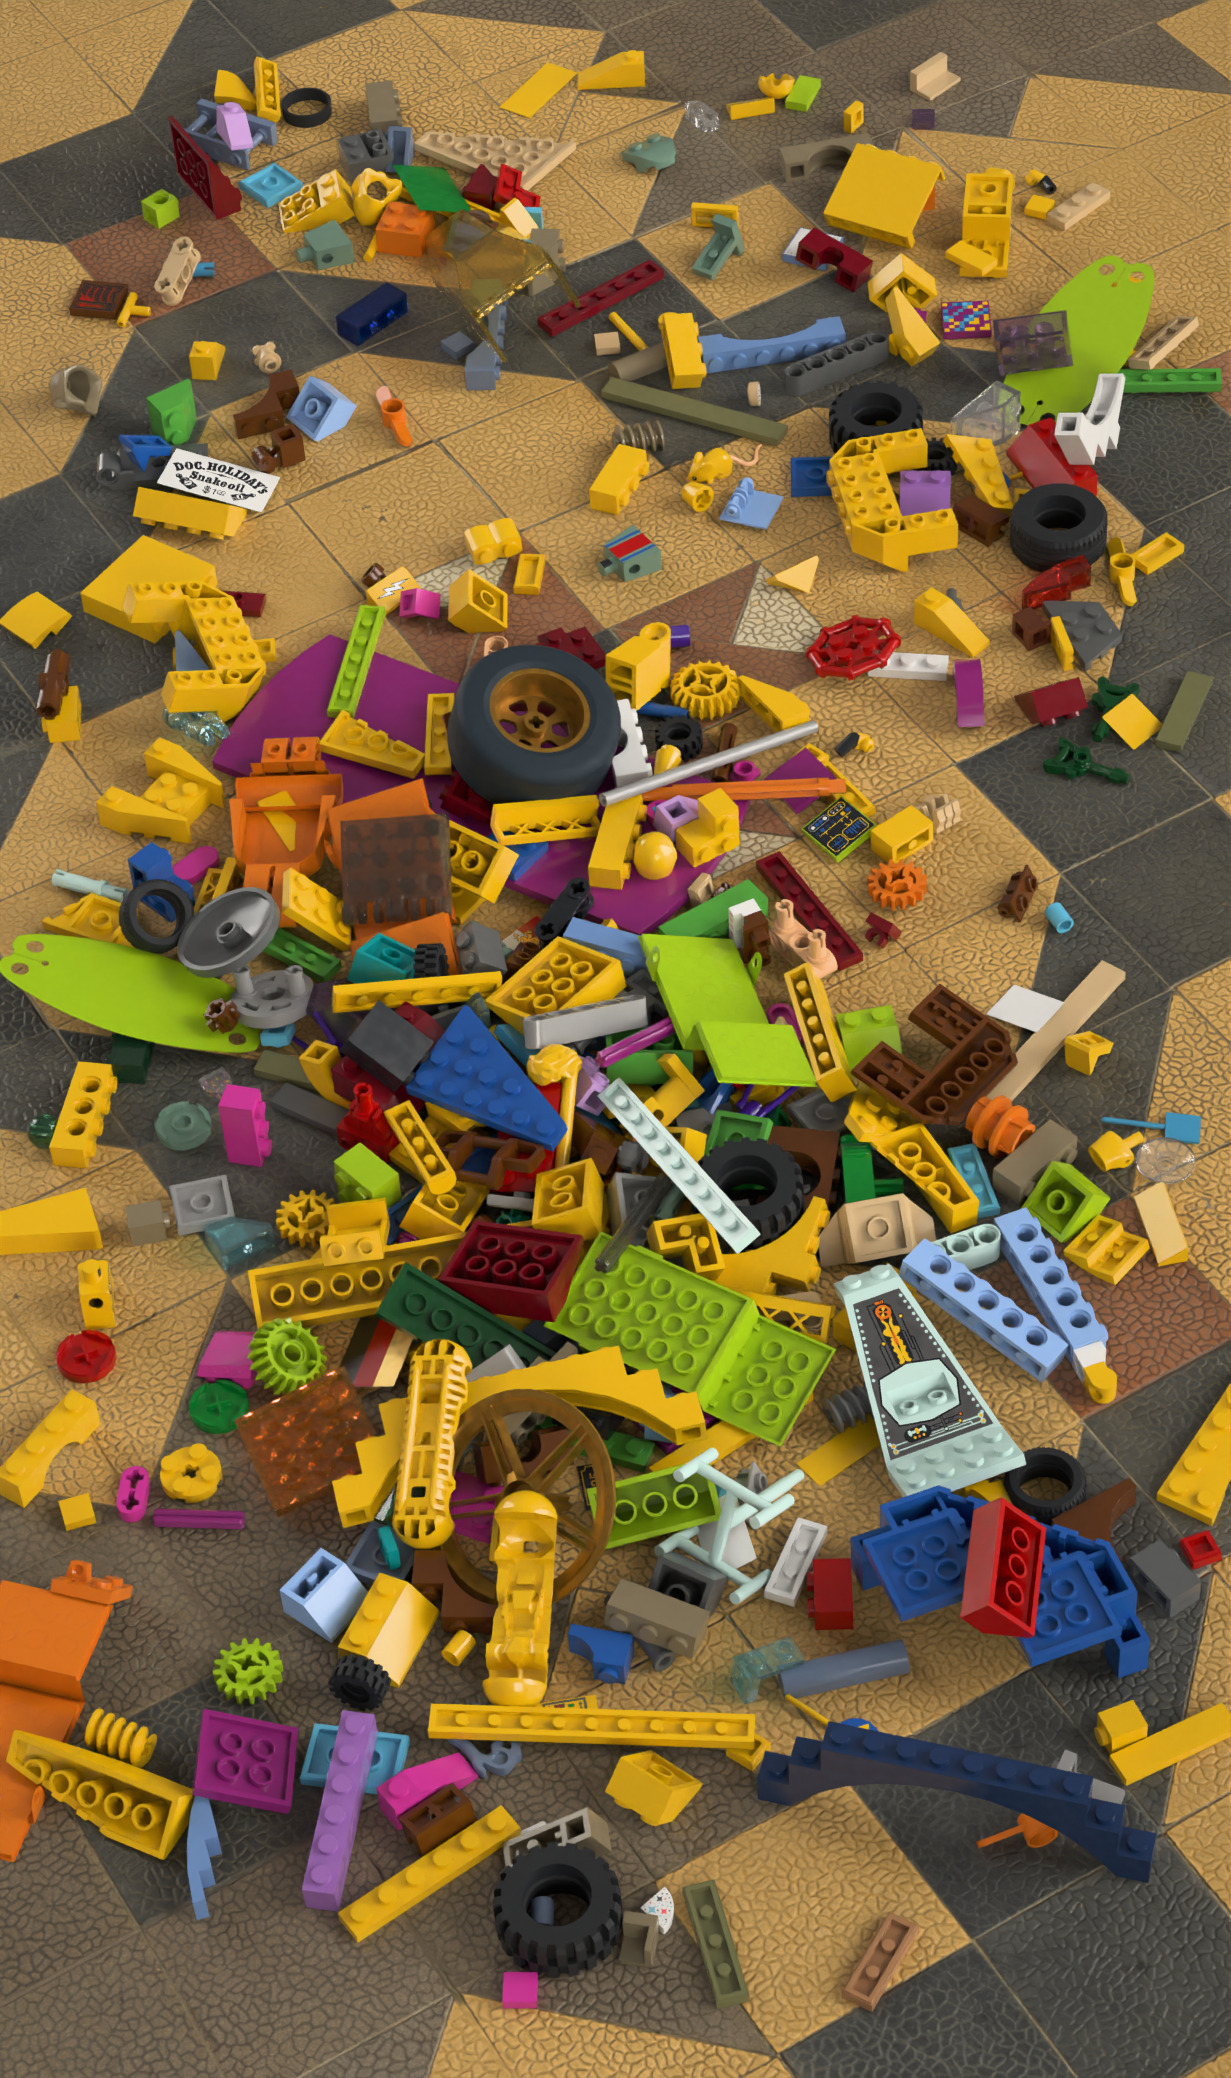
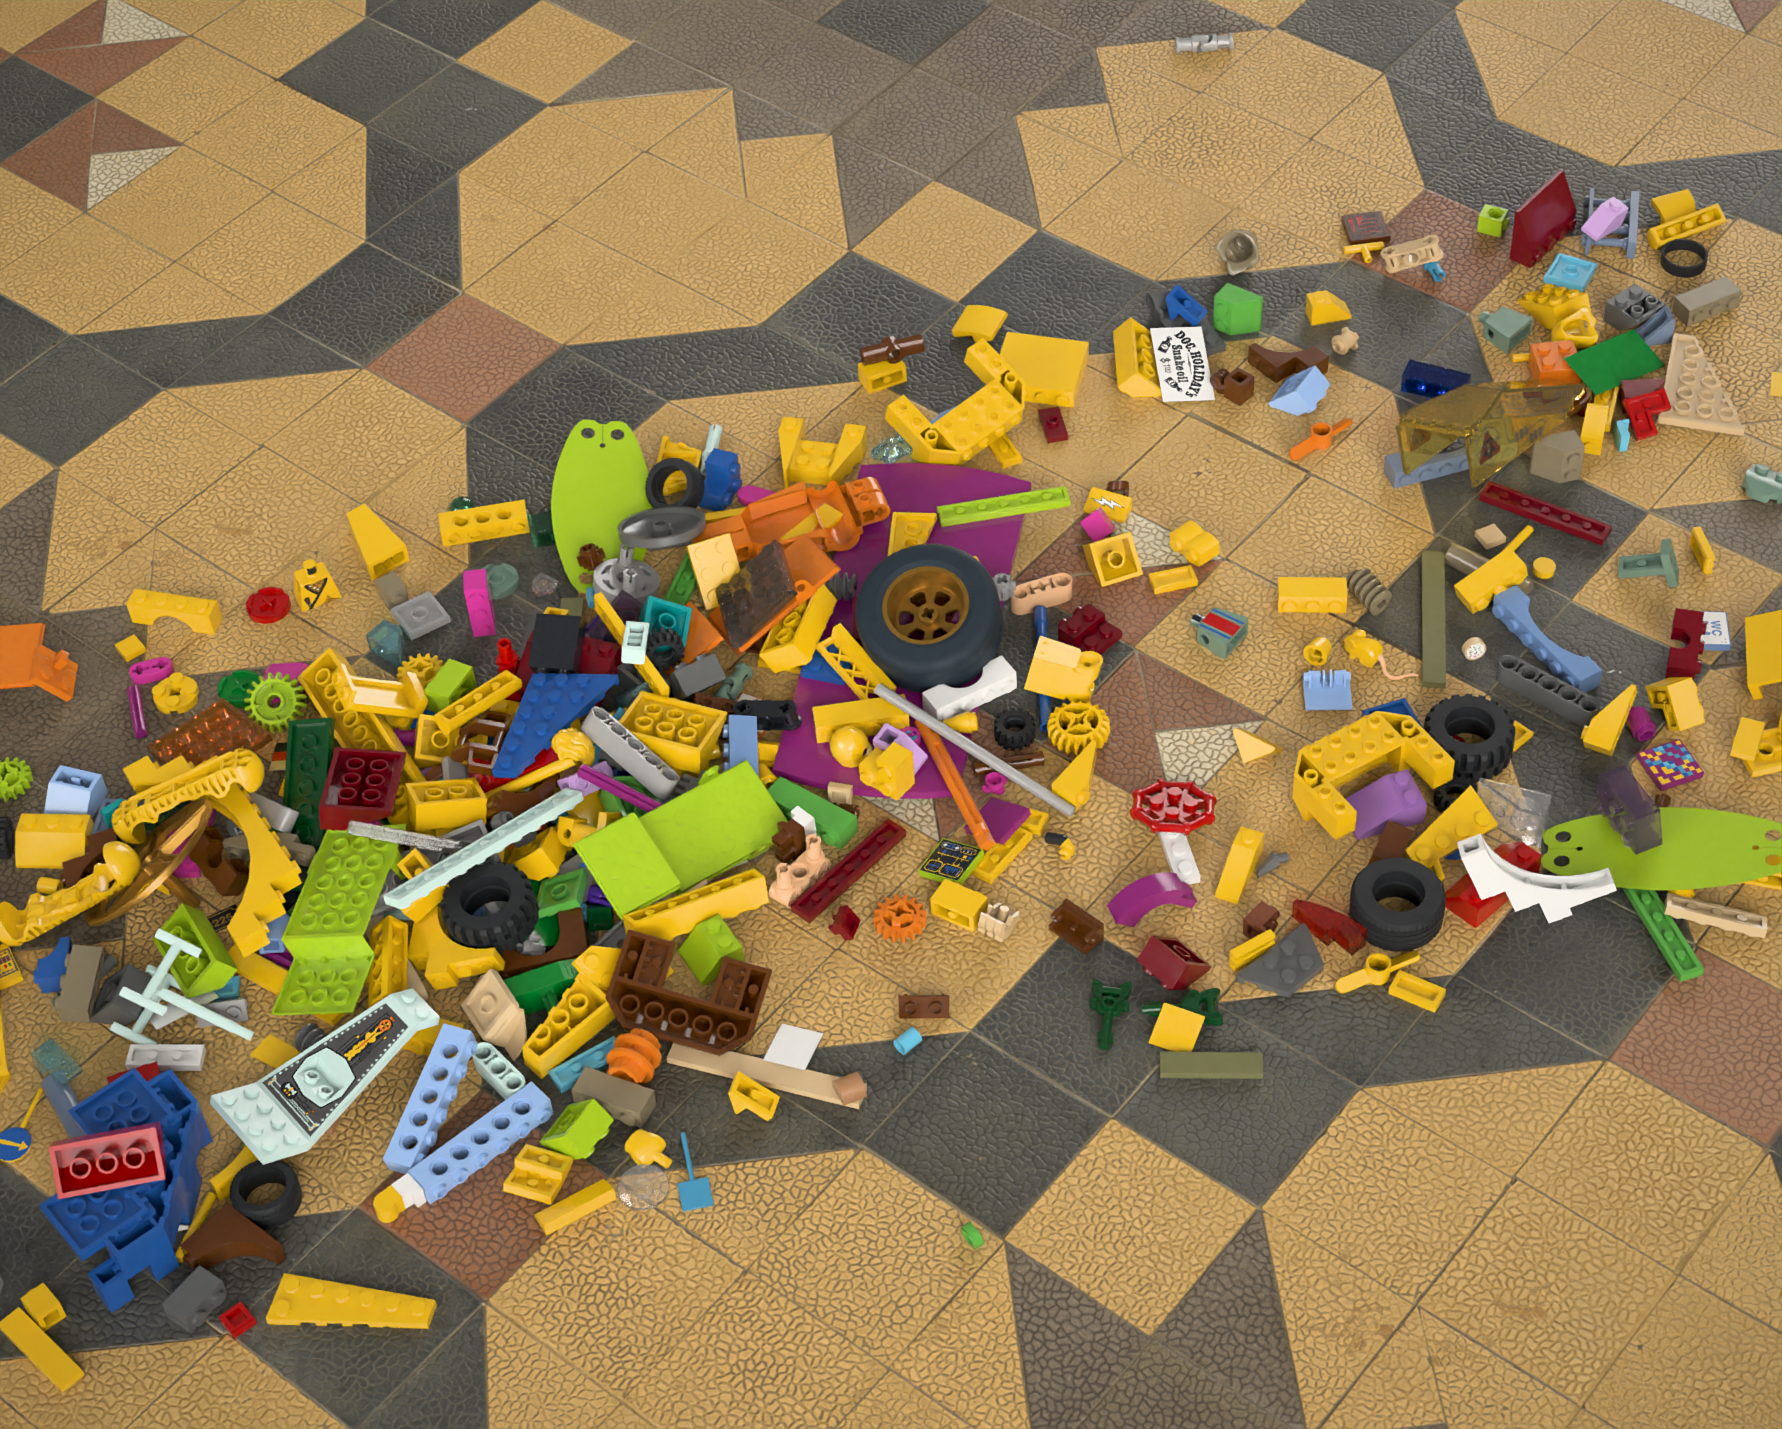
camera: 70 degrees right, 0 degrees up
(428, 975) = (635, 644): none -> light aqua slope
(680, 636) = (1136, 690): dark purple brick -> none
(971, 757) = (1076, 926): none -> reddish brown hinge
(1107, 968) = (850, 1088): none -> medium nougat brick

